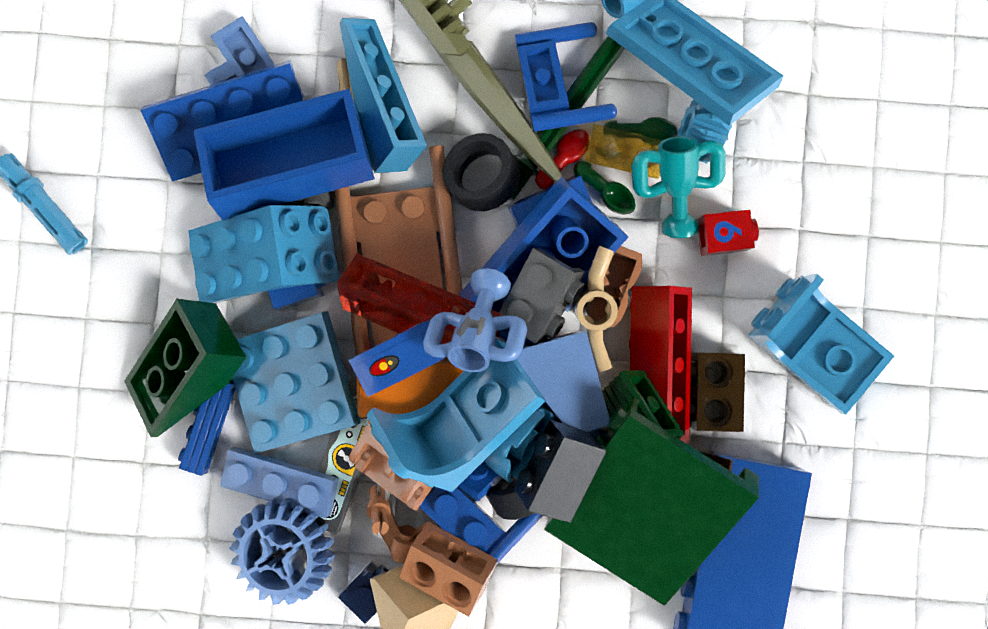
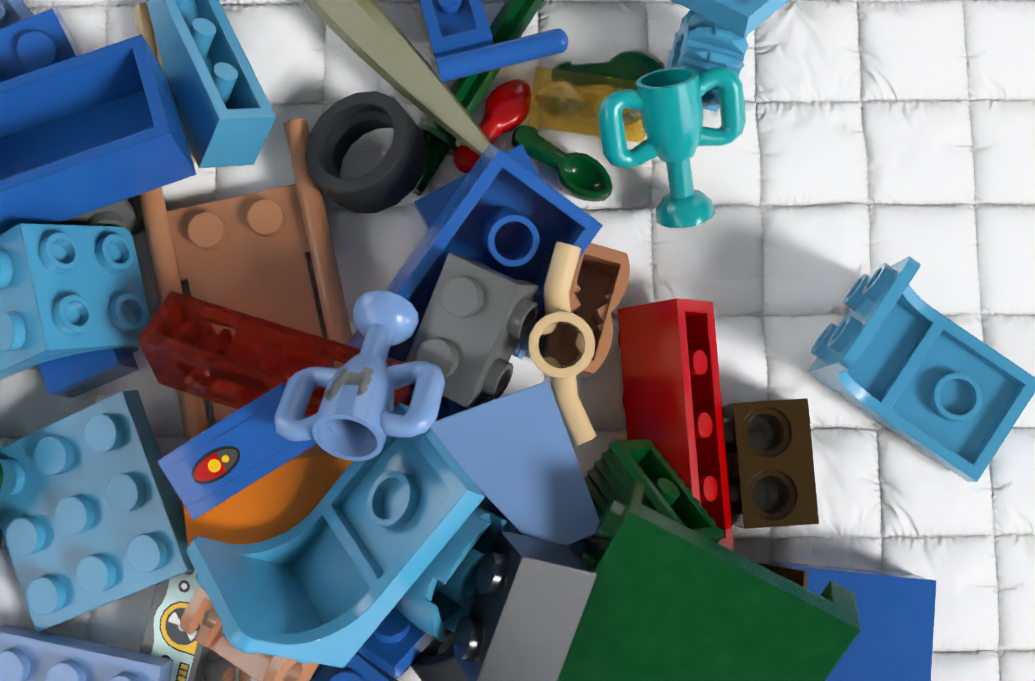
camera: 10 degrees left, 5 degrees down
(727, 232) = (758, 214): red brick -> none

